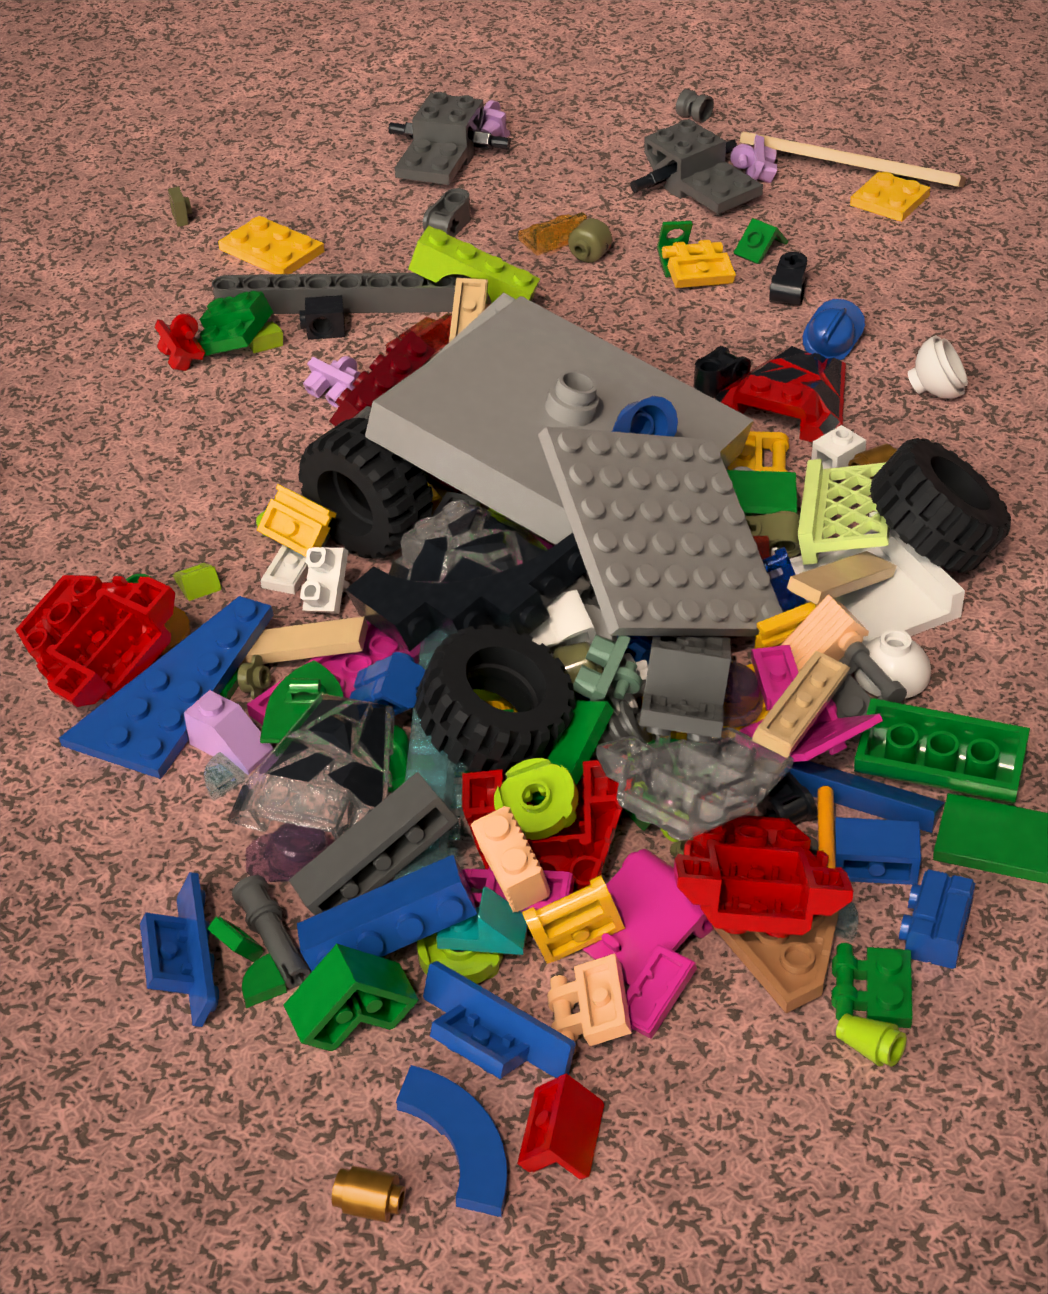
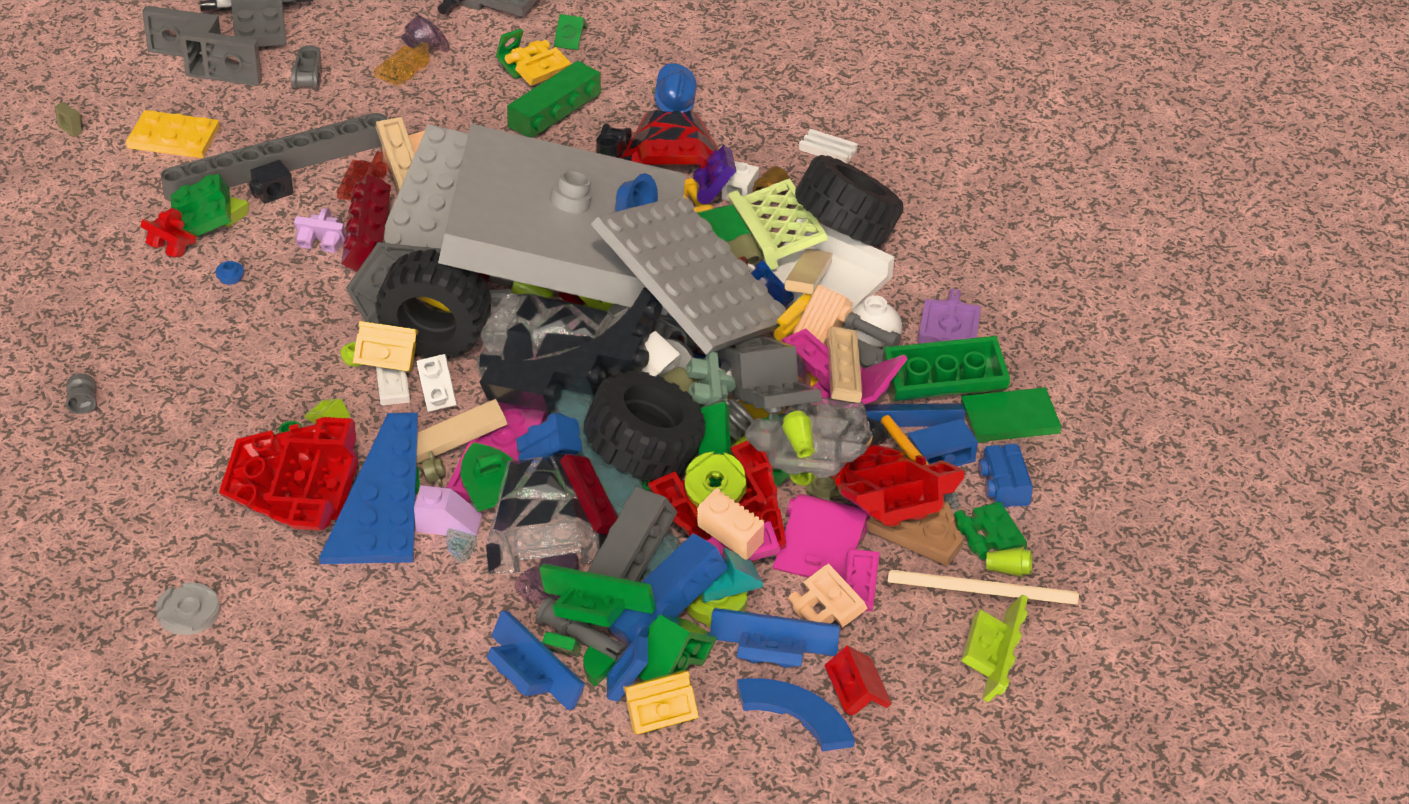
camera: 30 degrees left, 0 degrees up
(214, 399) = (229, 272): none -> blue plate
(276, 998) = (627, 668): none -> blue tile
(291, 894) = (594, 596): none -> green bracket
(291, 1059) = (660, 702): none -> yellow plate
(355, 164) = (202, 45): none -> dark grey bracket
(368, 1193) = (768, 761): pearl gold brick -> none
(384, 756) = (589, 492): none -> dark red tile
(444, 255) = (348, 106): lime arch -> none
(574, 921) = (788, 552): yellow plate -> none
(589, 202) = (423, 30): none -> piece
(590, 240) = (440, 61): olive head -> none
(665, 770) = (799, 432): none -> lime cone
(685, 306) = (554, 99): none -> green brick
(766, 1144) = (992, 646): none -> lime bracket
(789, 280) = (617, 57): black piece -> none
(804, 434) = (718, 171): none -> dark purple plate
(812, 1062) = (983, 587): none -> tile
(938, 370) = (772, 101): white piece -> none
(979, 441) = (824, 144): none -> white tile
(993, 691) = (948, 319): none -> medium lavender plate

